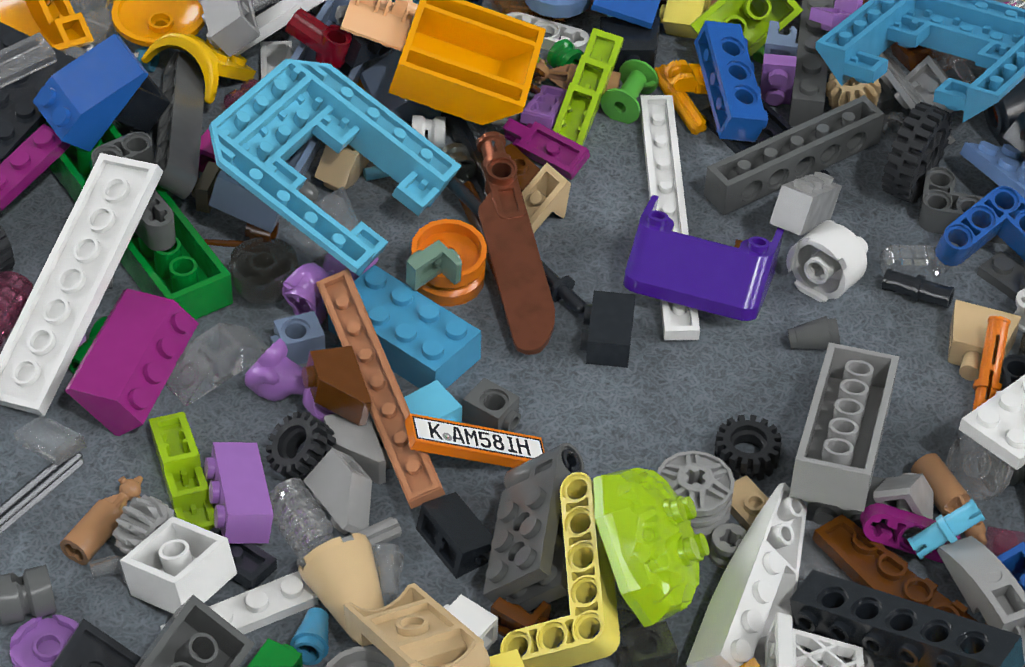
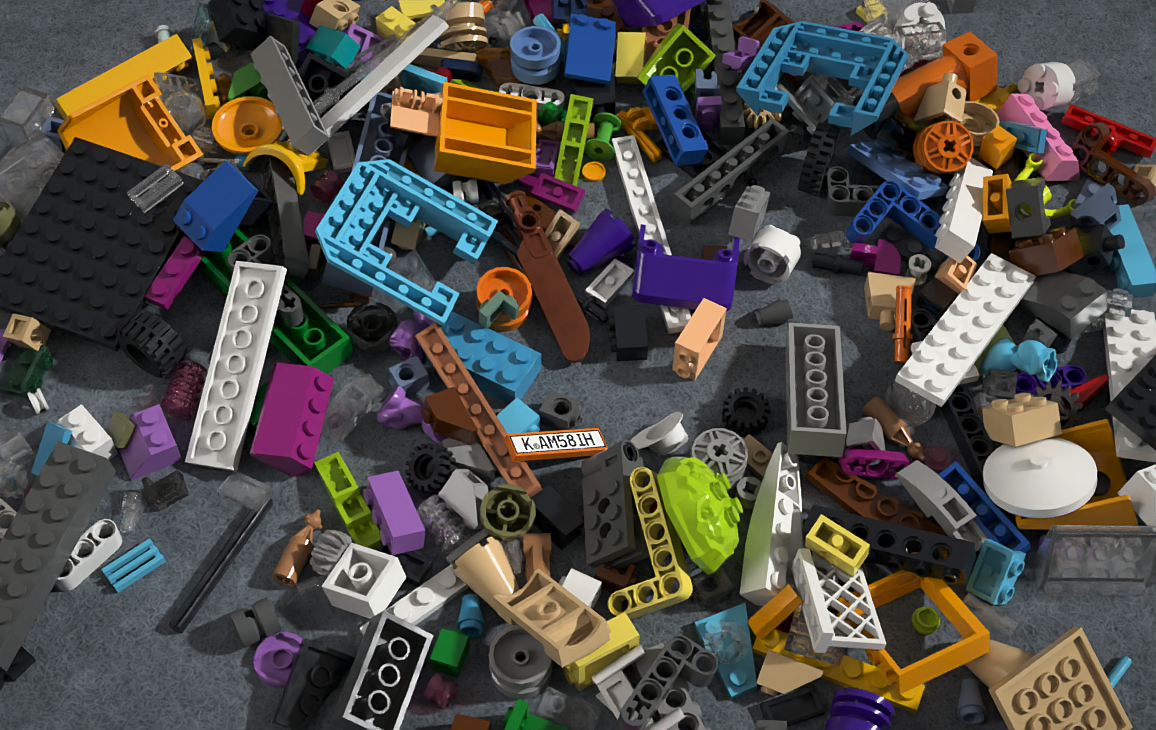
camera: 10 degrees left, 10 degrees up
(327, 41) = (380, 136): dark red piece -> none
(388, 509) = (507, 512): none -> olive cylinder
(422, 568) = (537, 553): none -> medium nougat piece
(596, 215) = (601, 243): none -> dark purple cone
(597, 266) = (610, 282): none -> white plate
(608, 134) = (593, 171): none -> light orange piece
(632, 454) = (663, 436): none -> white piece
(700, 346) = (698, 339): none -> light nougat window
(830, 615) = (837, 545): none -> light yellow brick
(946, 529) = (900, 459): medium azure pin -> none
(977, 287) = (882, 258): none -> magenta brick

